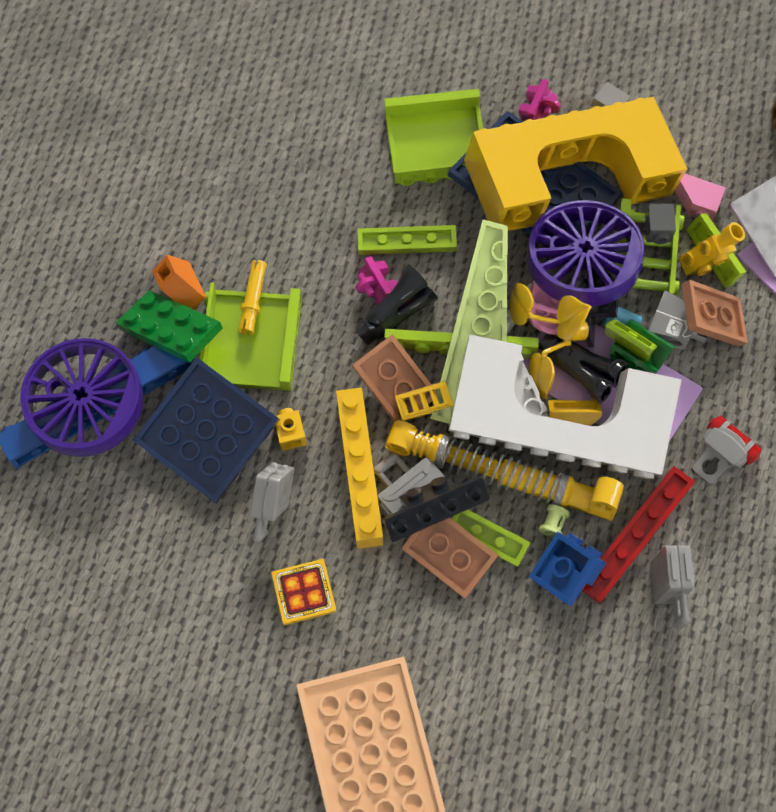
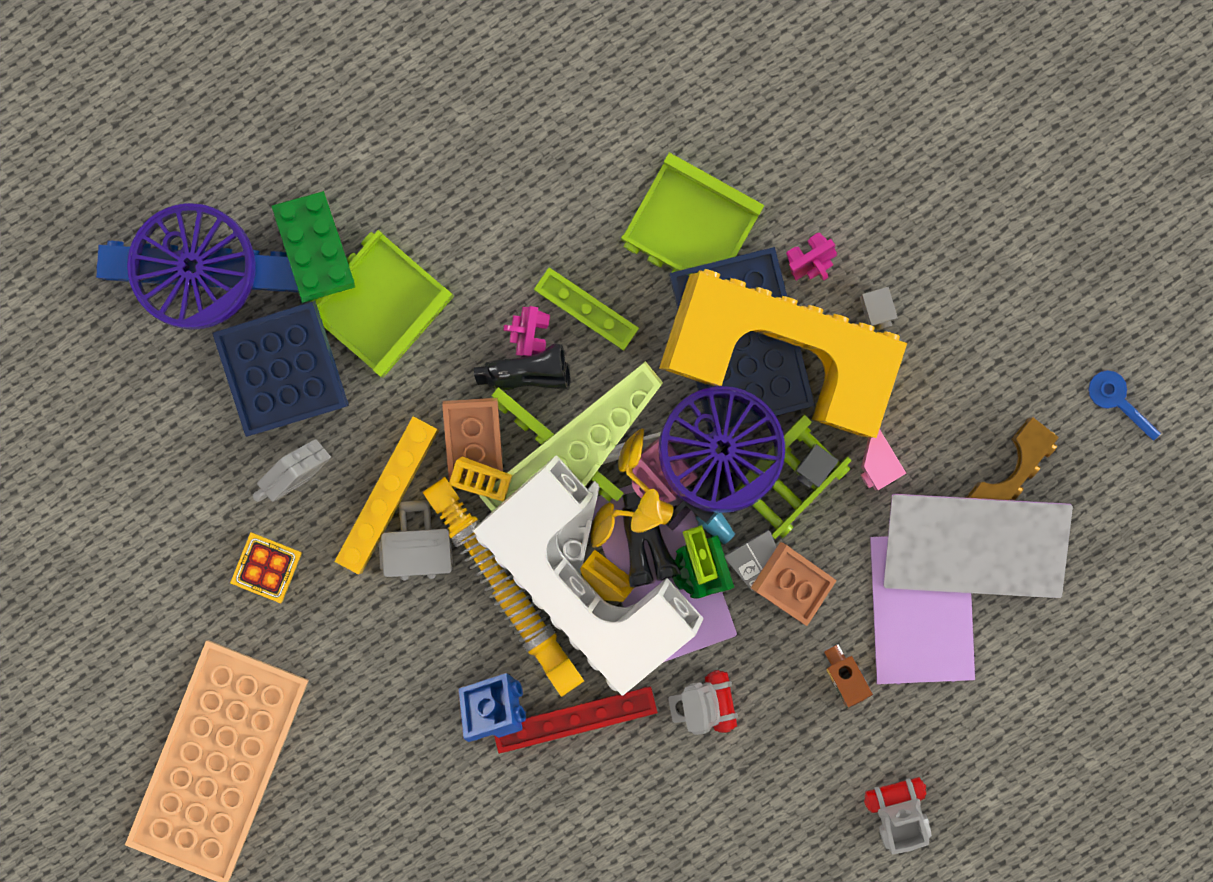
camera: 35 degrees right, 20 degrees up
(179, 281) = (351, 209): orange slope -> none
(251, 307) = (407, 268): yellow pin -> none
(290, 437) = (357, 426): yellow brick -> none
(434, 504) = (419, 578): black bracket -> none
(451, 555) = (407, 623): nougat plate -> none
(498, 539) = (451, 631): lime plate -> none
(554, 520) = (514, 659): yellowish green bush -> none
(673, 580) = (565, 783): light grey piece -> none
(712, 250) = (836, 527): yellow brick -> none
(727, 272) = (851, 522): lime plate -> none

